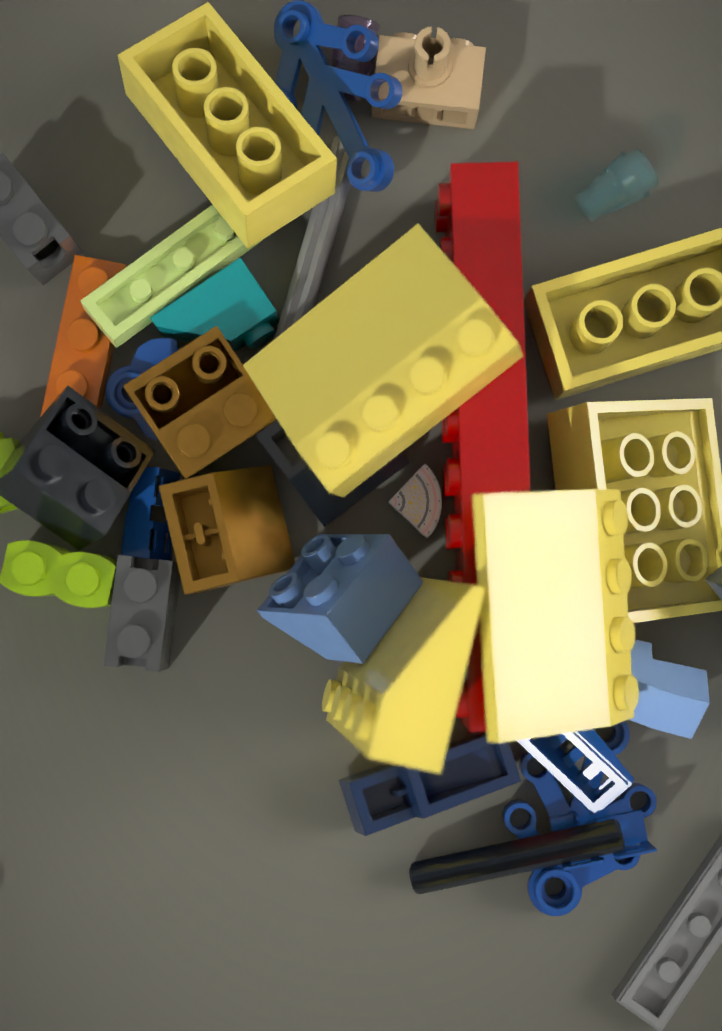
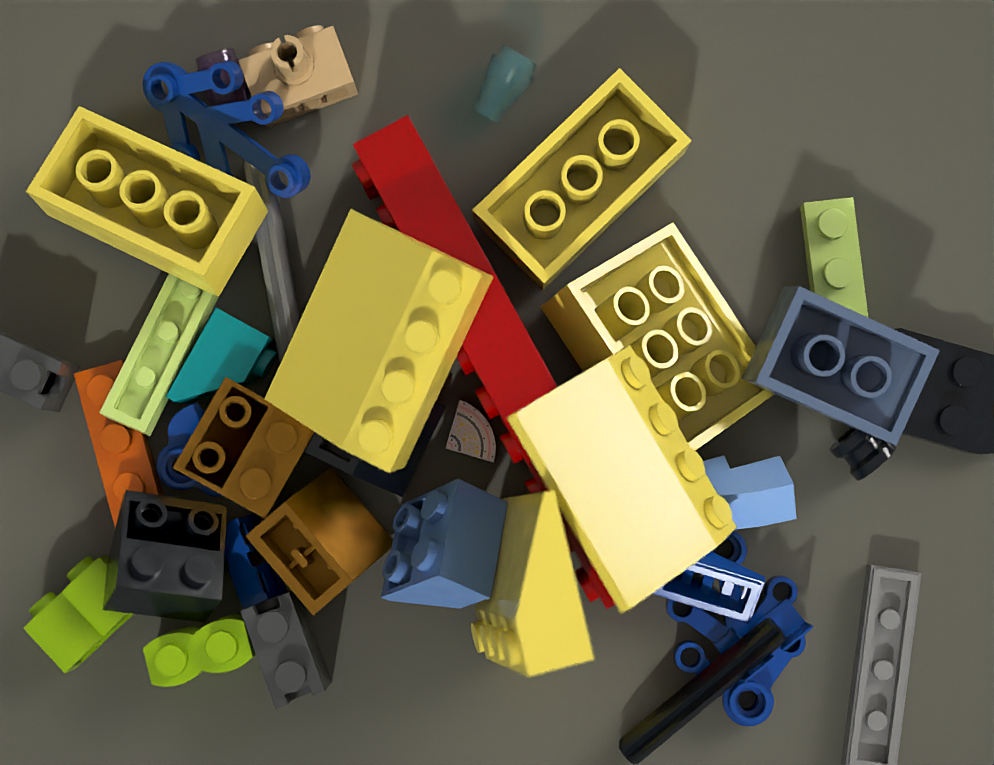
camera: 25 degrees left, 0 degrees up
(399, 793) = (617, 649): dark blue slope -> none

